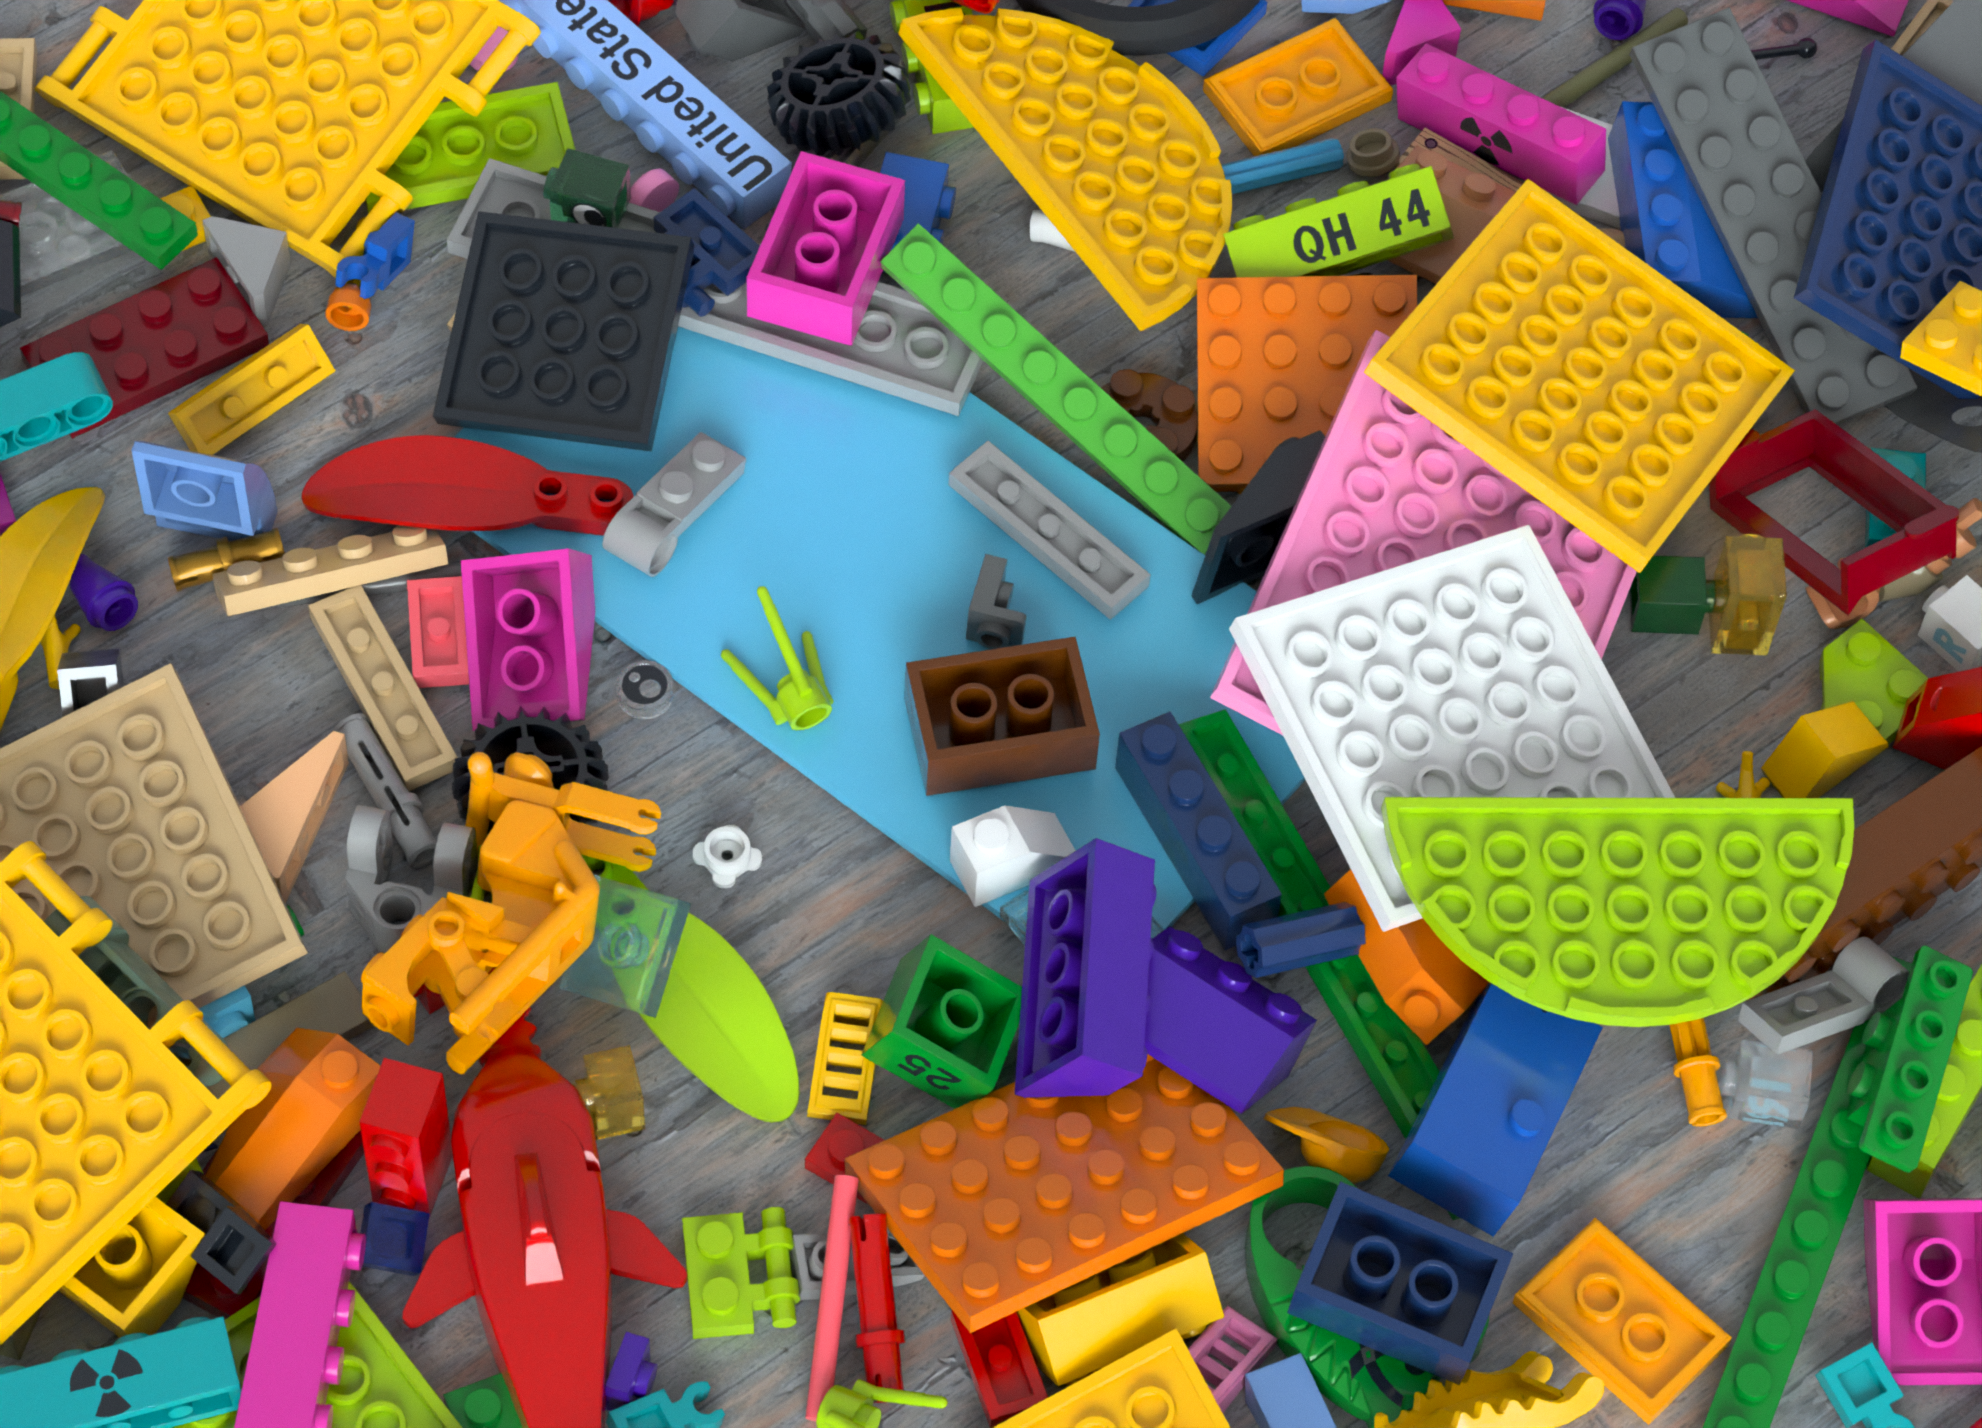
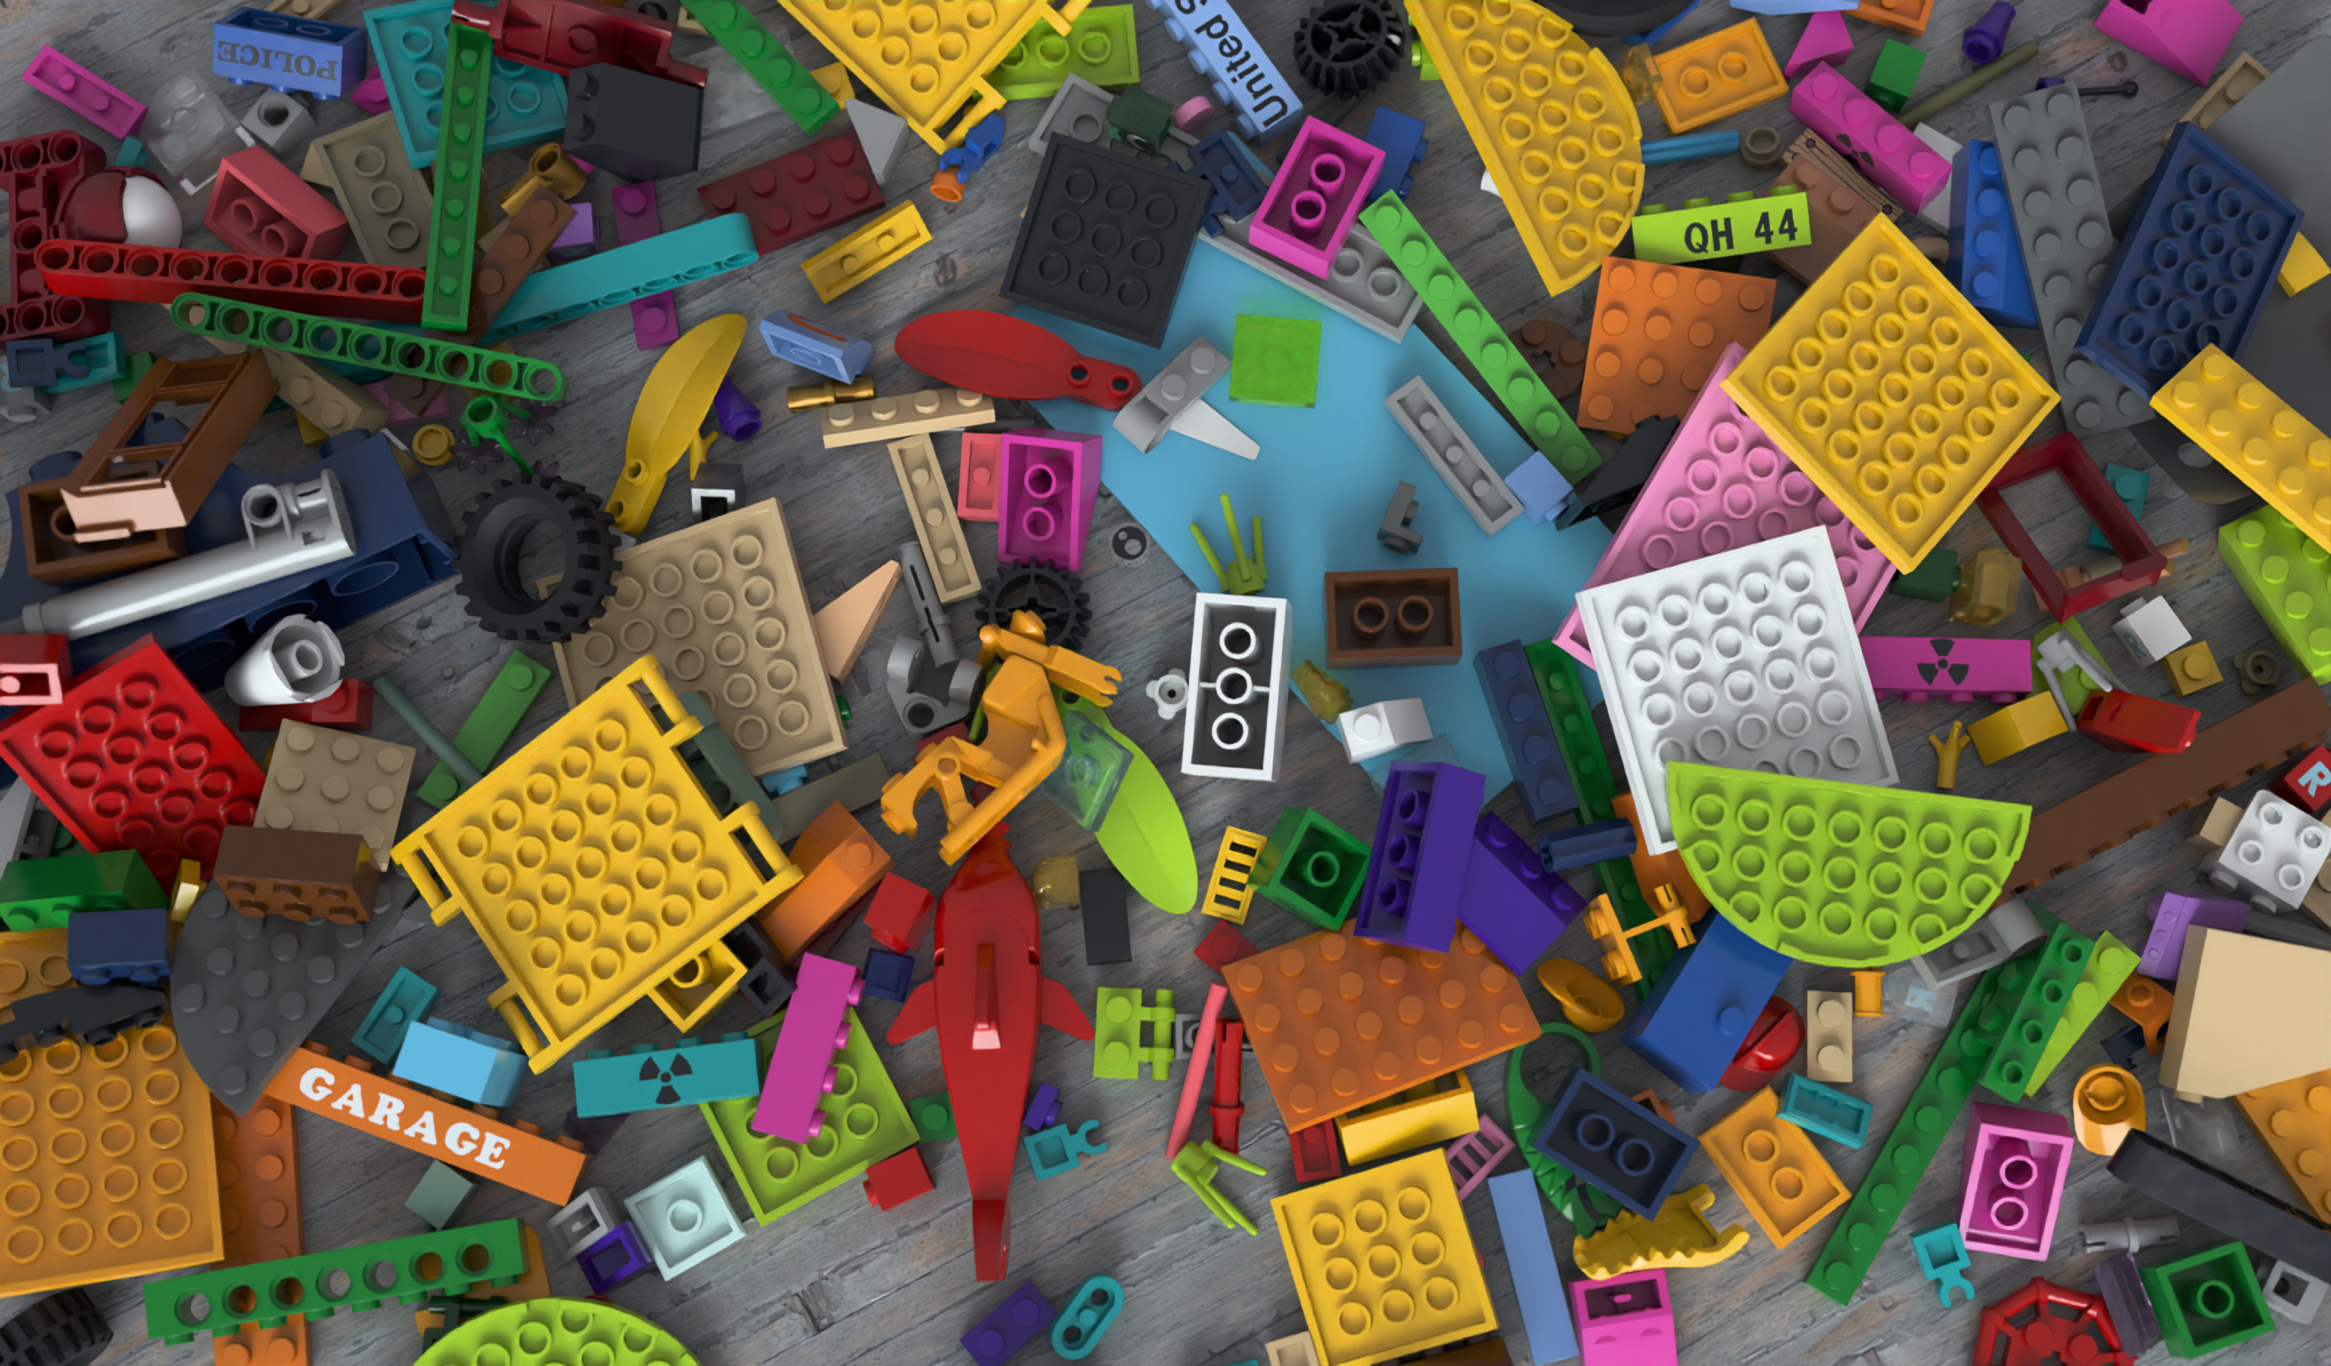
camera: 15 degrees right, 20 degrees up
(680, 1132) = (1105, 916): none -> black slope
(724, 537) = (1210, 427): none -> white sticker
(801, 453) = (1275, 361): none -> clear neon green plate
(815, 807) = (1238, 687): none -> white brick
(923, 818) = (1322, 692): none -> clear yellow cone
(1165, 549) = (1539, 489): none -> medium blue brick
(1208, 86) = (1640, 75): none -> clear yellow bracket
(1355, 1050) = (1618, 959): none -> light orange plate
(1519, 52) = (1893, 75): none -> green brick
(1574, 1177) = (1767, 1047): none -> red piece
(1661, 1153) = (1827, 1036): none -> tan plate
(1673, 1237) = (1824, 1110): none -> teal plate
(1722, 695) = (1948, 669): none -> dark pink brick
(1863, 656) = (2065, 652): none -> light grey plant

